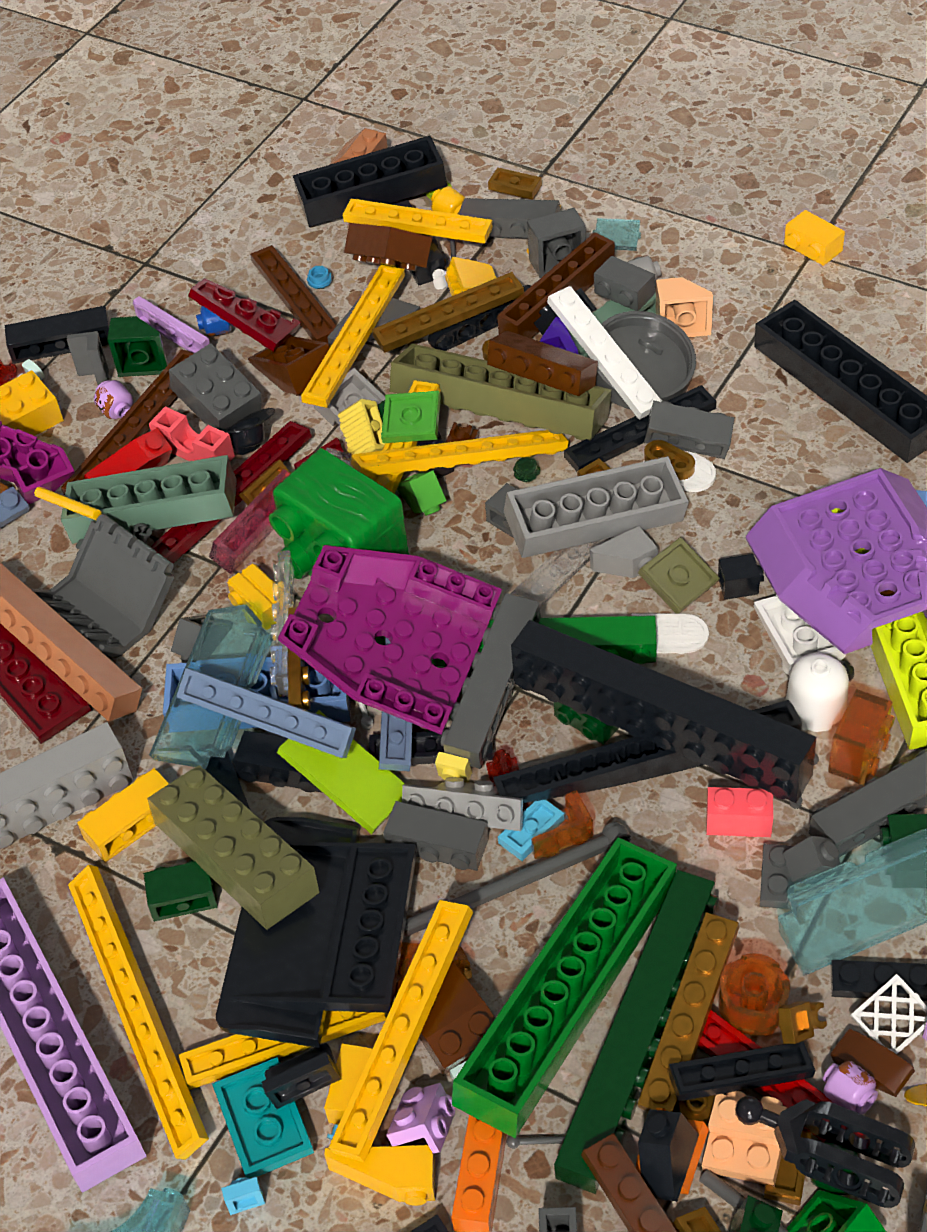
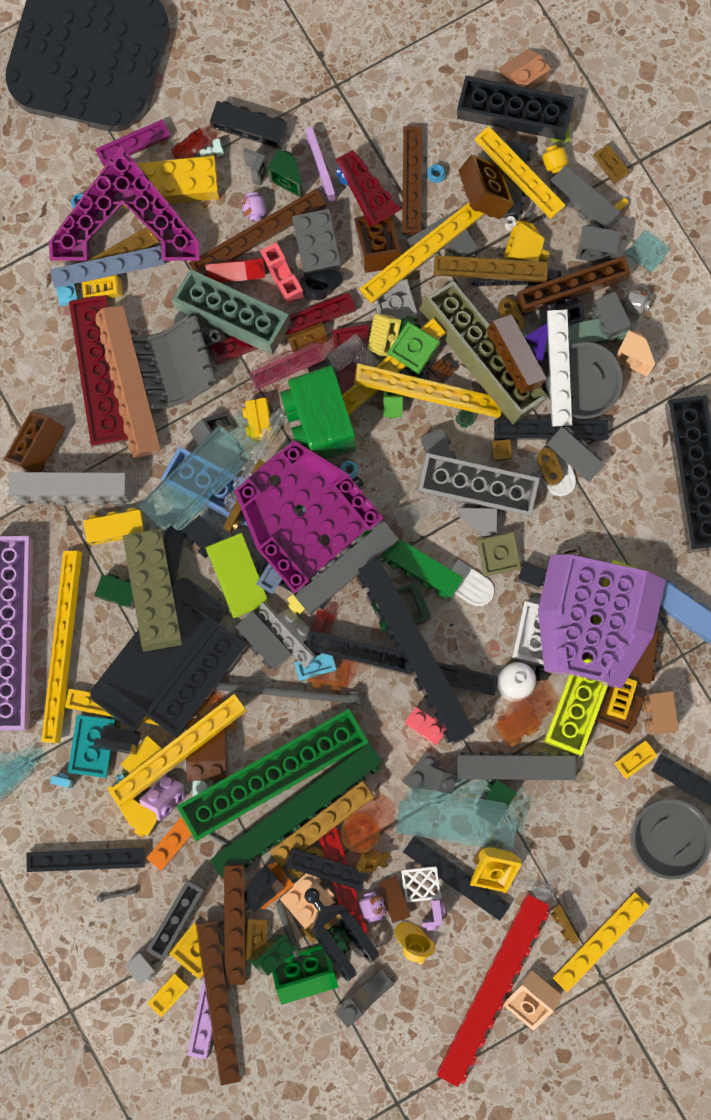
camera: 30 degrees right, 30 degrees up
(67, 503) = (180, 290): yellow bar -> none
(266, 713) = (208, 524): sand blue plate -> none

